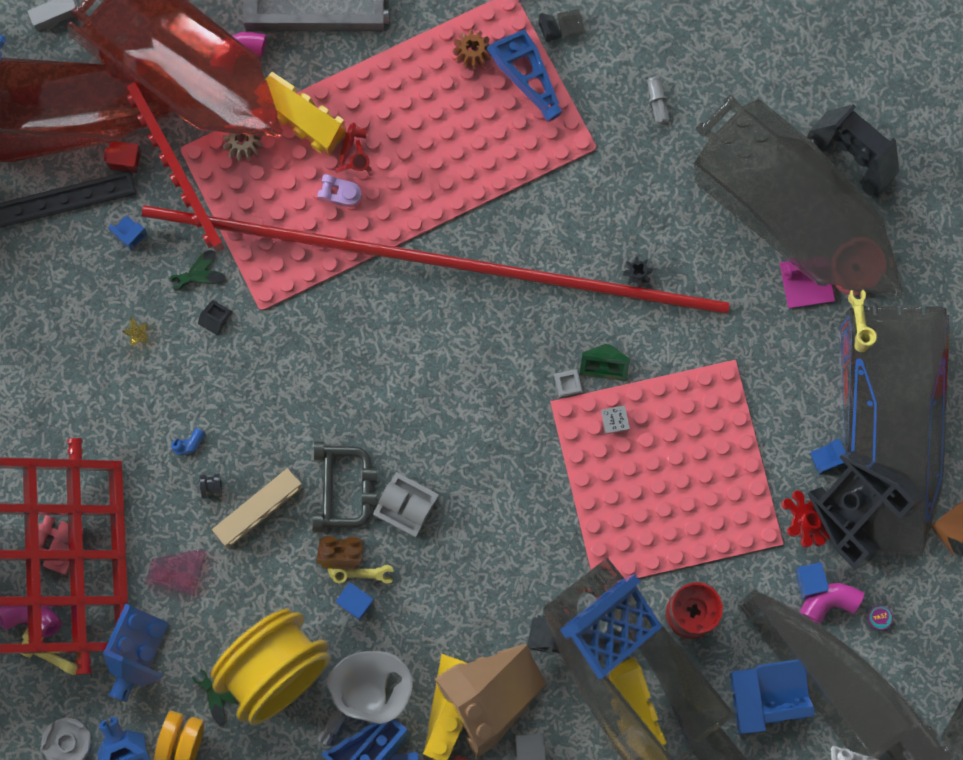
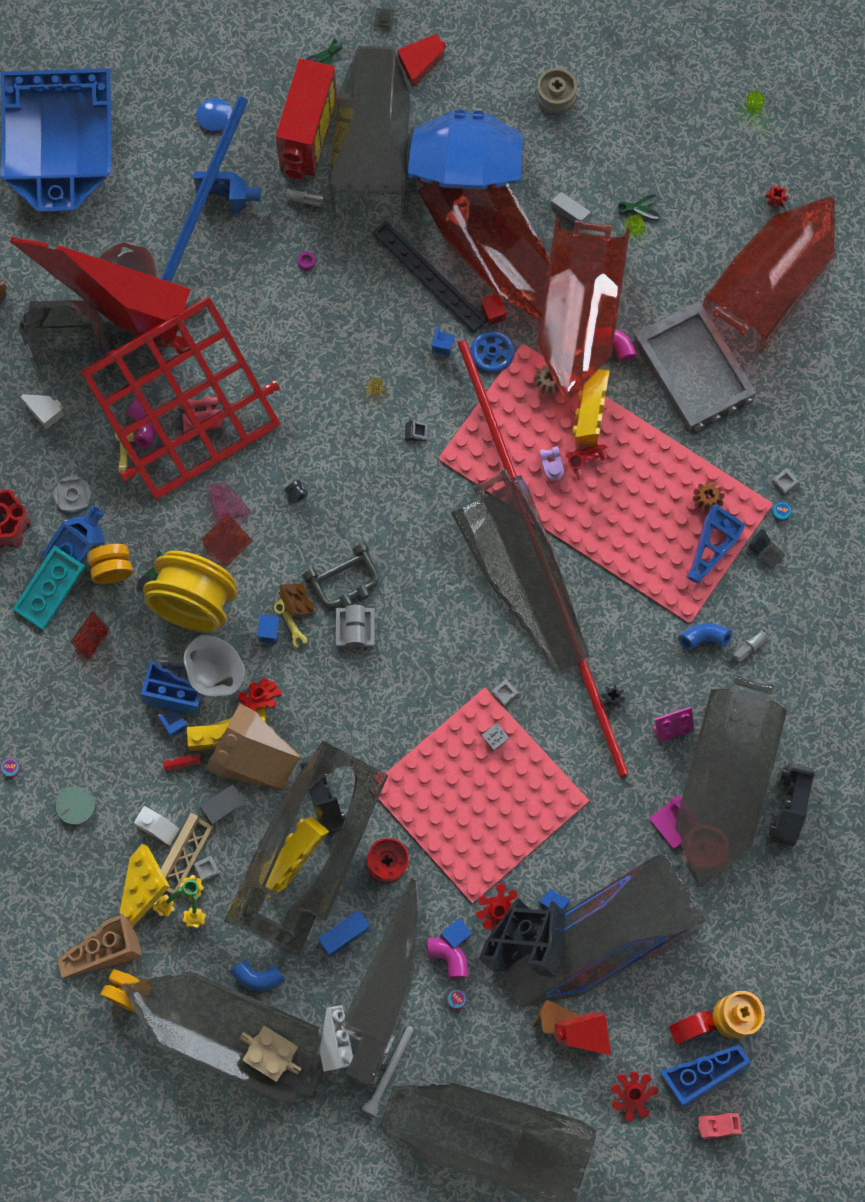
camera: 65 degrees right, 5 degrees down
(133, 650) = (156, 501): blue plate -> none
(151, 190) = (494, 367): none -> blue plate
(178, 177) = (497, 350): red plate -> none
(190, 445) = (317, 463): blue arm -> none
(199, 273) = (441, 403): dark green piece -> none
(223, 594) = (226, 540): none -> clear red hinge
(257, 508) = (298, 531): tan fence -> none
(429, 653) = (260, 695): none -> red animal
(440, 284) = (522, 567): none -> clear smoke windscreen
(597, 612) = (341, 782): blue fence -> none
(605, 363) = (534, 709): dark green slope -> none
(618, 140) = (705, 633): none -> blue cylinder
(704, 219) = (674, 724): none -> dark pink hinge
(784, 691) = (359, 953): blue bracket -> none
(863, 333) = (648, 866): light yellow brick -> none

